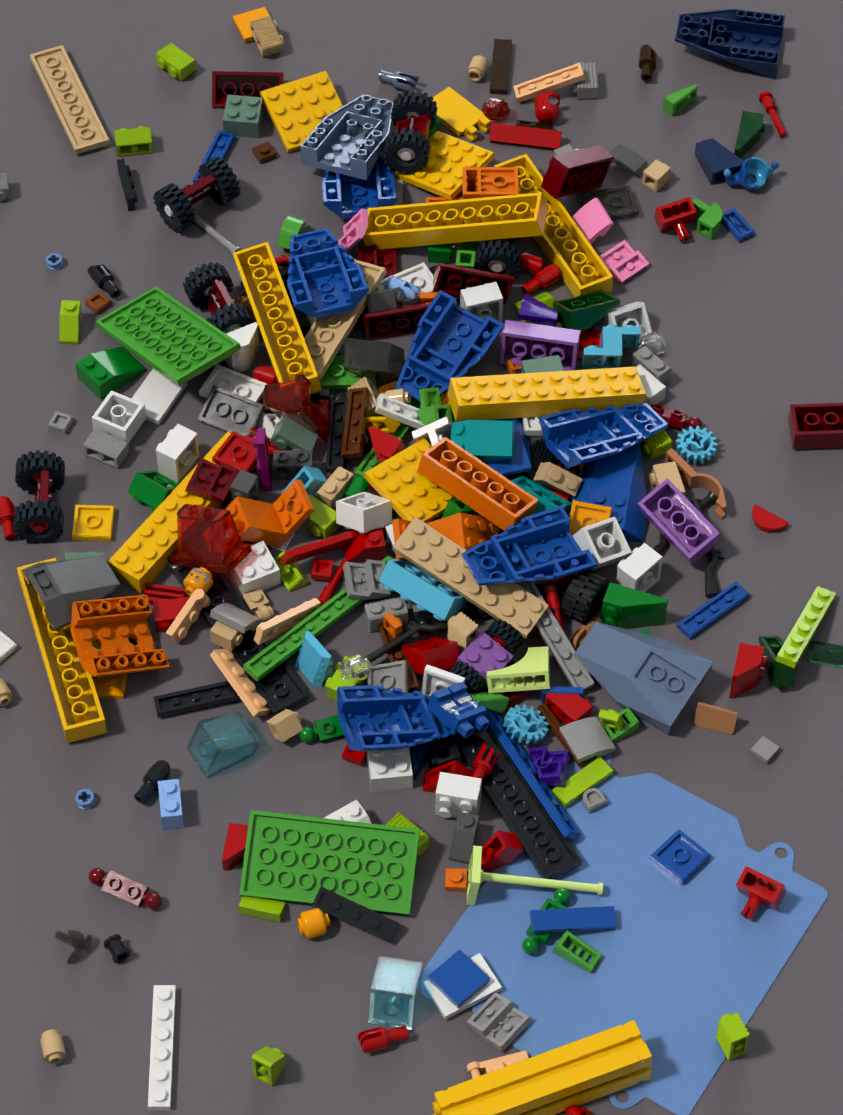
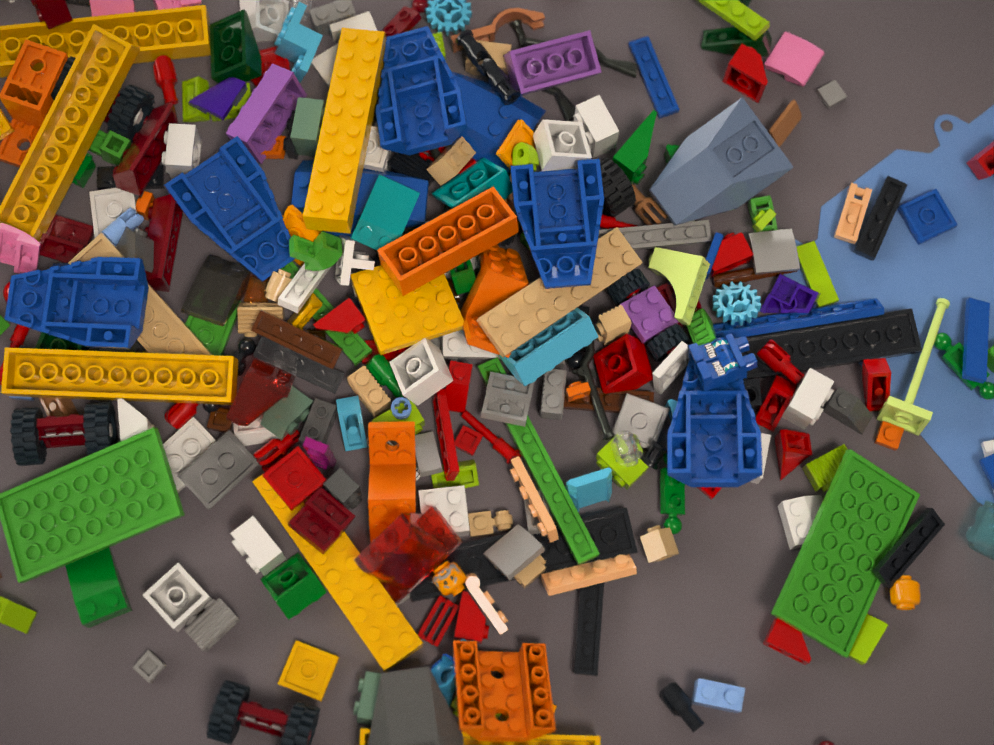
camera: 75 degrees left, 20 degrees up
(158, 395) = (158, 550): white tile -> none
(222, 743) = (659, 616): clear light blue slope -> none
(296, 540) = (427, 454): none -> light grey tile
(327, 503) = (396, 403): none -> medium blue bush
(409, 801) = (791, 450): none -> red slope
(531, 263) = (140, 77): red arm -> none
(579, 521) = (525, 154): none -> lime piece
(593, 799) = (839, 272): light grey tile -> none
(651, 475) = (495, 75): none -> black piece
(654, 793) = (852, 214): none -> light nougat plate
(659, 816) = (880, 218): none -> black plate
(784, 710) = (794, 58): none -> bright pink slope

